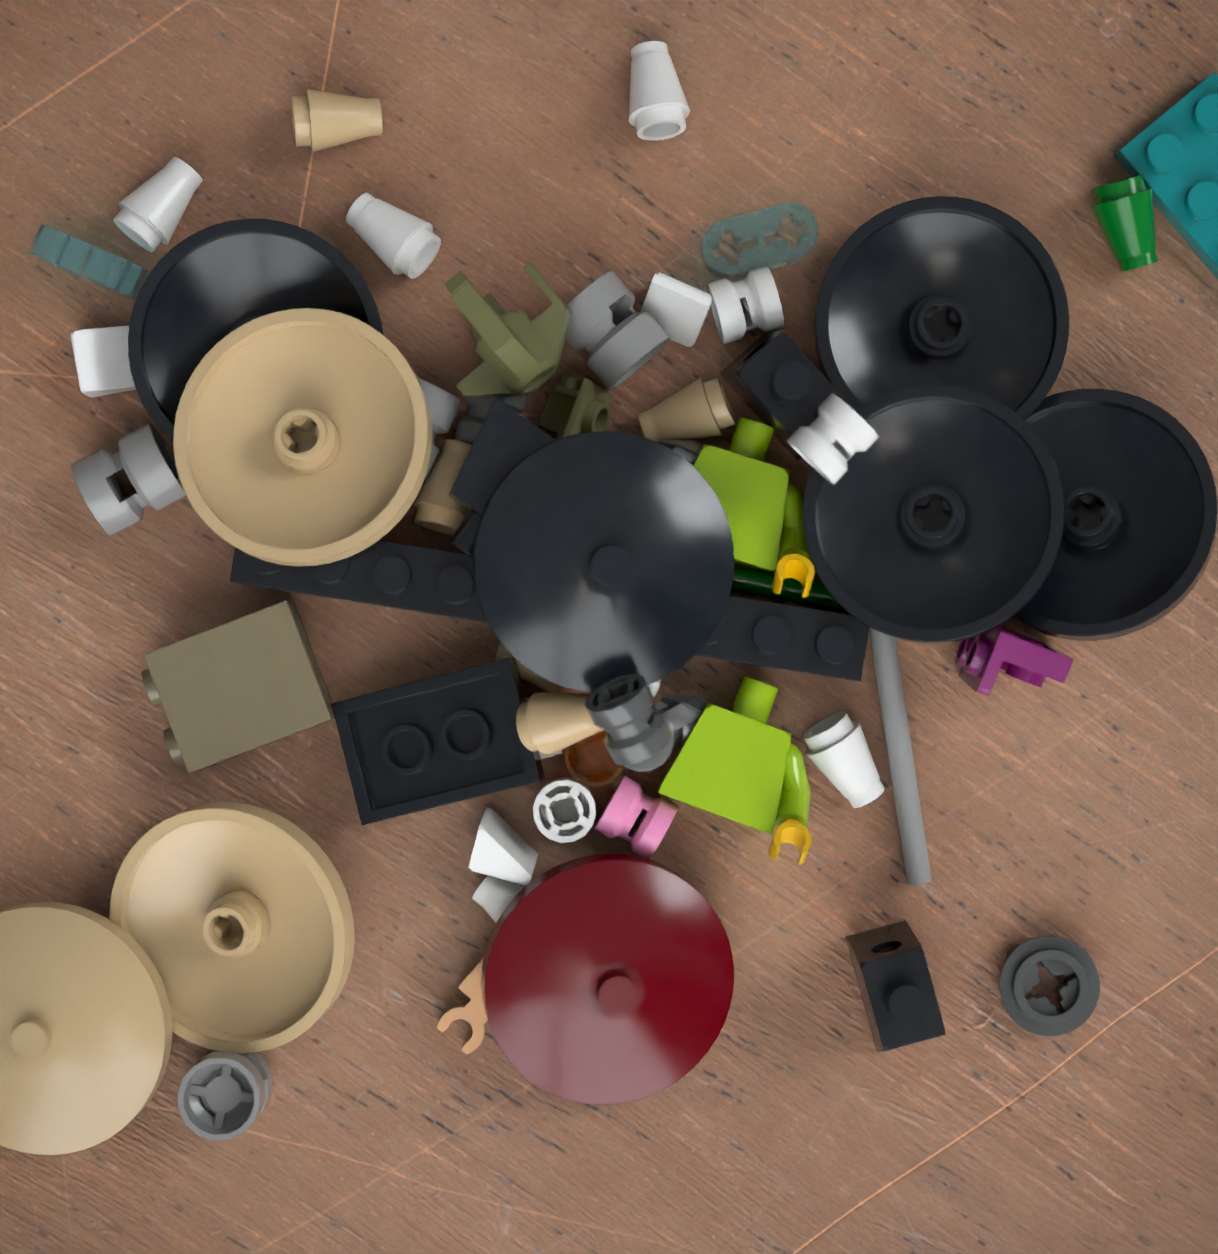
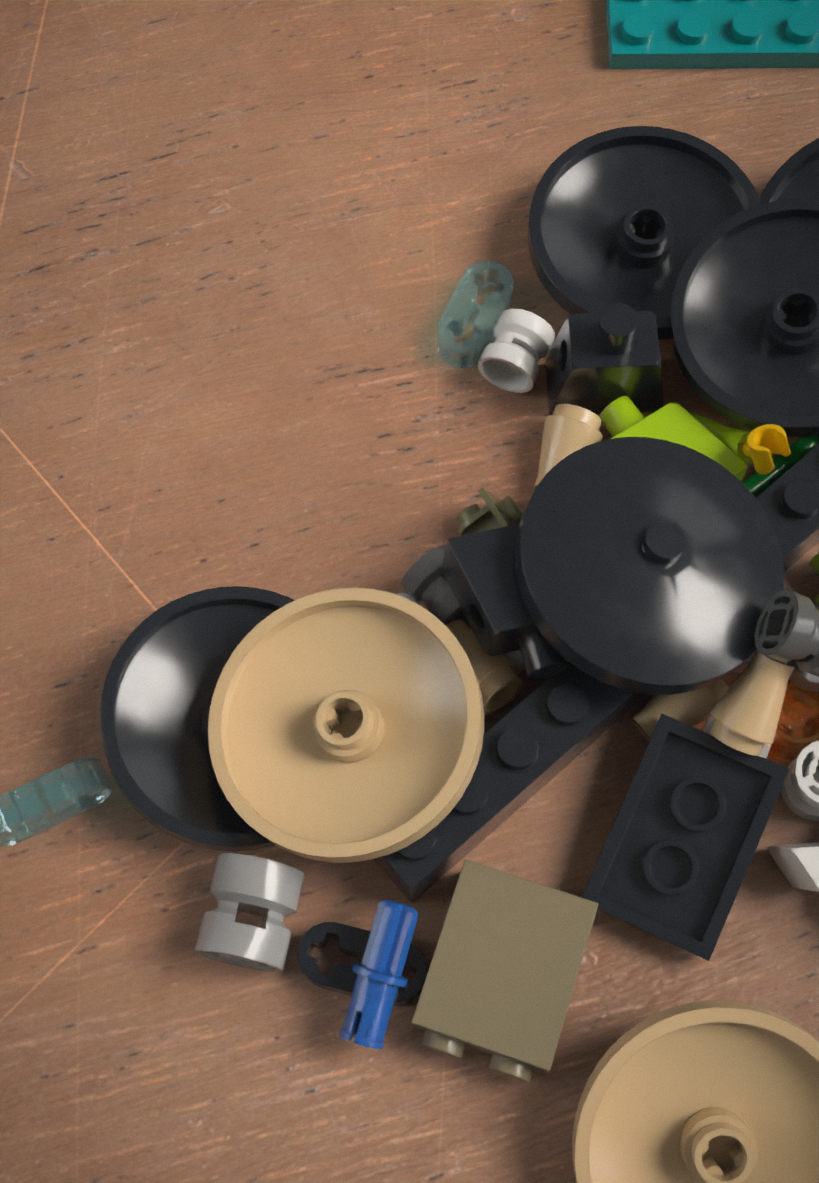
camera: 45 degrees left, 20 degrees down
(102, 360) = (137, 854): white slope -> none
(153, 592) = (352, 943): none -> black beam
(158, 205) = (54, 715): white cone -> none
(159, 606) = (379, 974): none -> blue axle
(333, 119) = (112, 531): tan cone -> none
(395, 236) = (241, 553): white cone -> none
(513, 348) = (410, 514): olive piece -> none
(612, 331) = (456, 451): light grey wheel -> none
(656, 94) = (308, 299): white cone -> none
(677, 308) = (476, 400): white slope -> none
(833, 438) = (685, 330): white wheel -> none
(1127, 221) = (666, 81): green cone -> none

